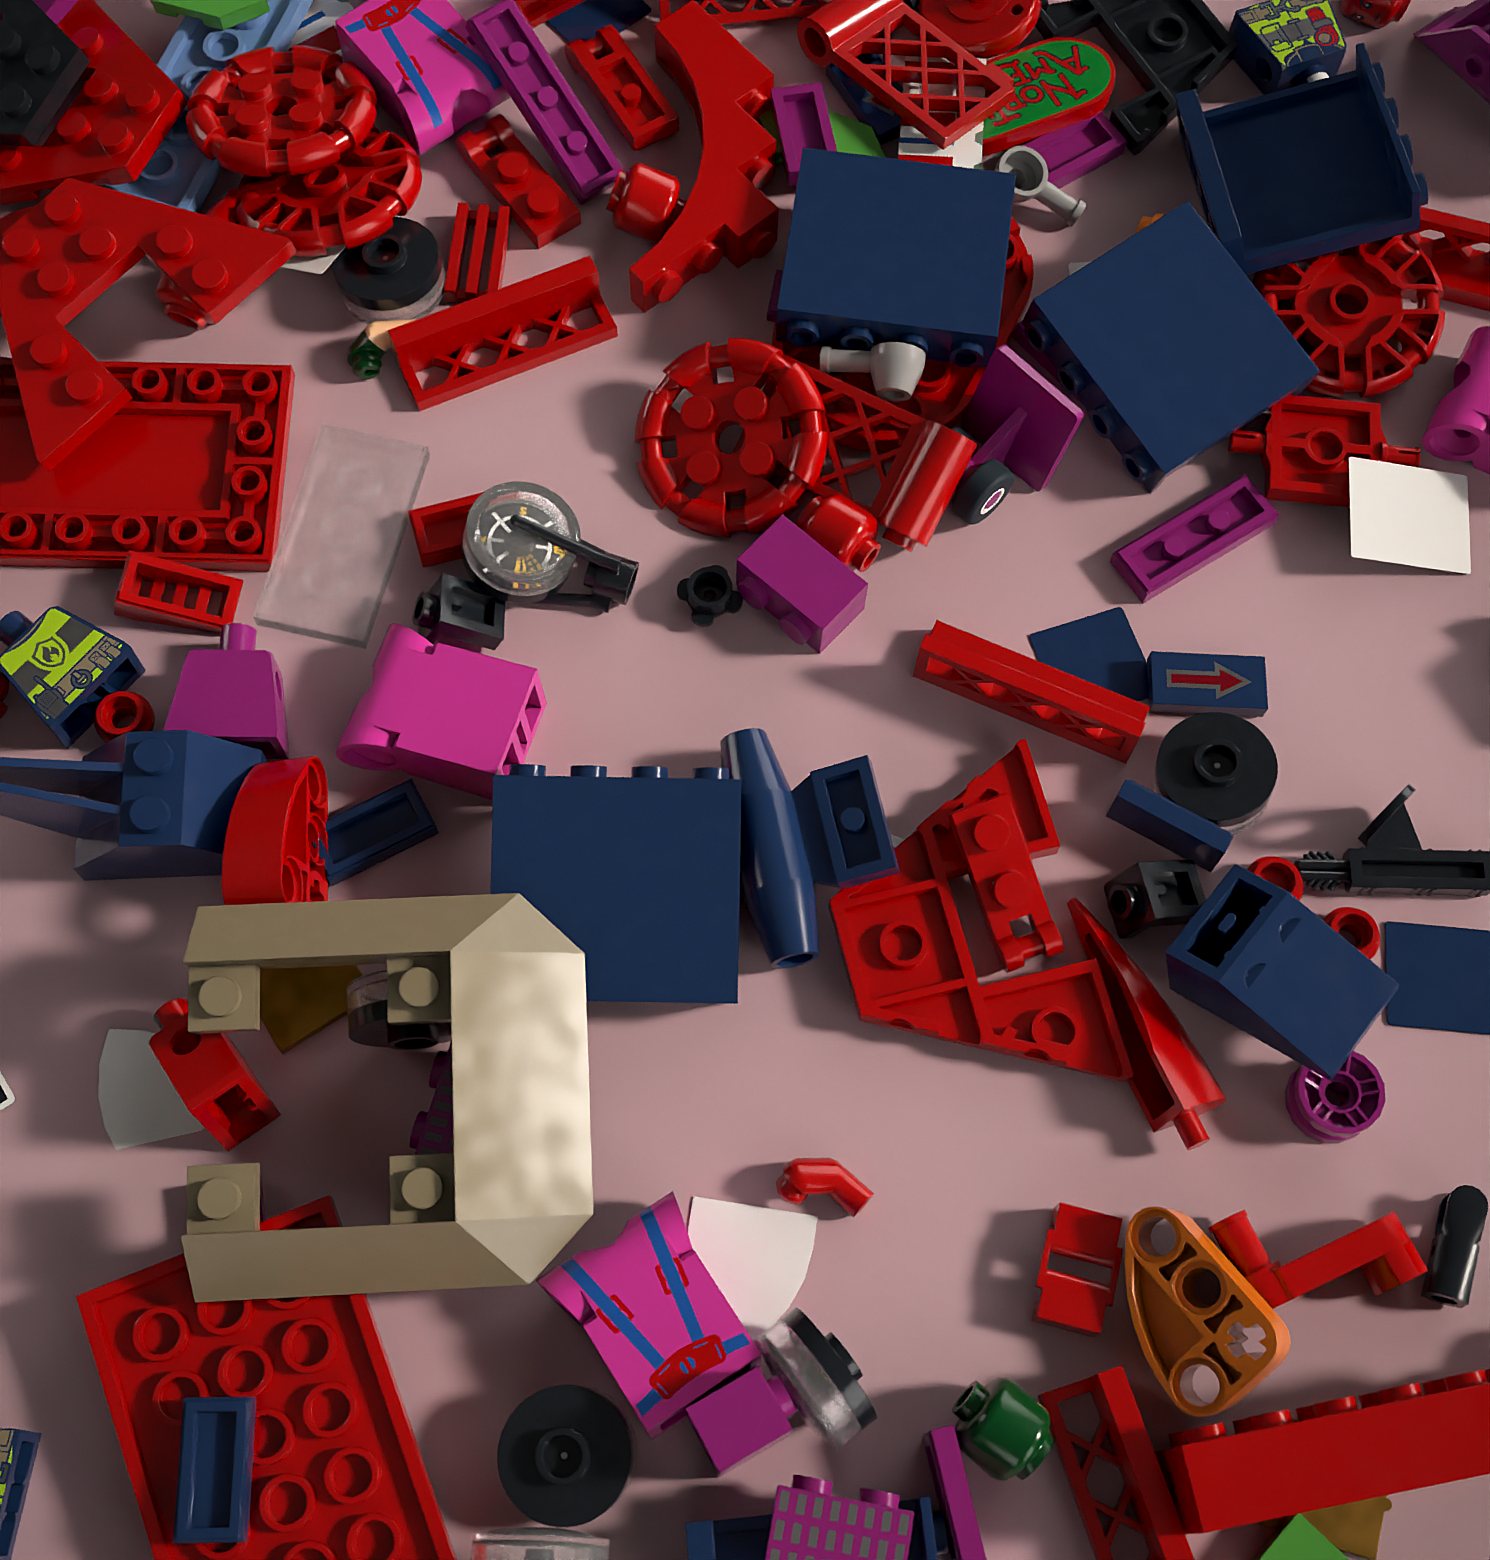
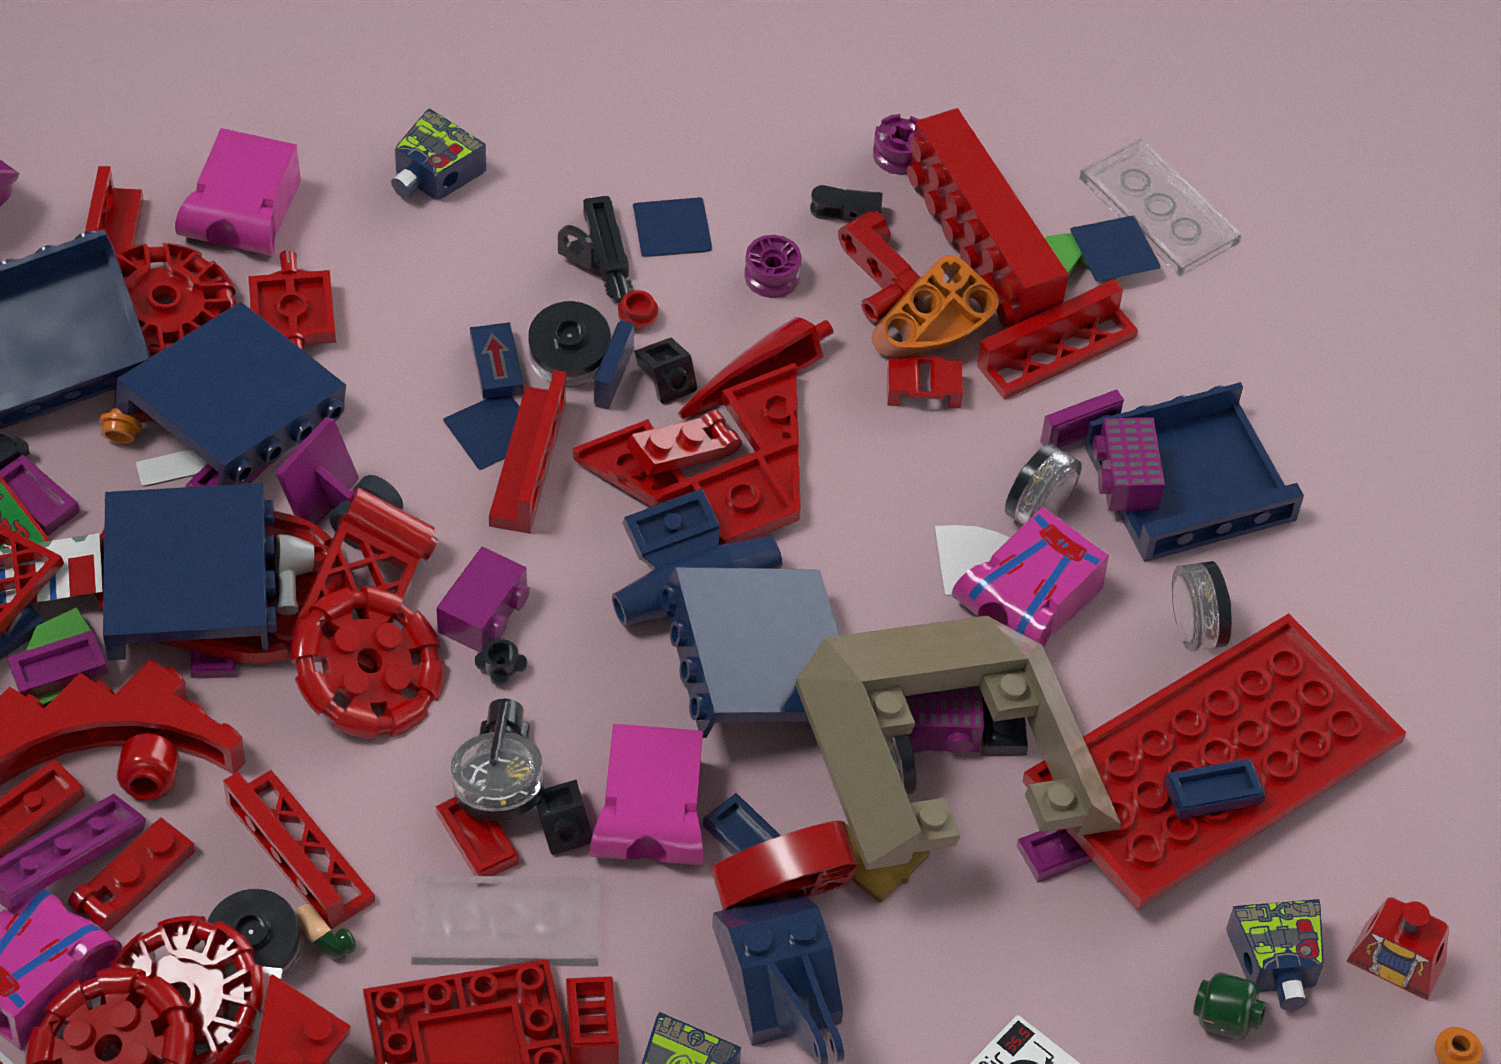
camera: 105 degrees left, 15 degrees down
(122, 704) = (711, 1013): red plate -> none
(137, 1094) = (978, 928): white sticker -> none
(211, 1077) = (965, 872): red torso -> none
(233, 694) = (676, 947): magenta torso -> none
(481, 219) = (208, 880): red tile -> none
(567, 1455) = (1130, 617): black piece -> none
(742, 1419) = (1088, 508): magenta brick -> none
(822, 1176) = (912, 519): red arm -> none
(842, 530) = (431, 580): red head -> none
(1002, 1428) = (1032, 399): dark green head -> none
(1032, 183) = (81, 511): light grey bar -> none
(1194, 538) = (378, 380): magenta tile -> none
(1278, 973) = (708, 291): dark blue slope -> none
(1360, 925) = (662, 268): red plate -> none
(1409, 515) = (337, 256): white sticker -> none

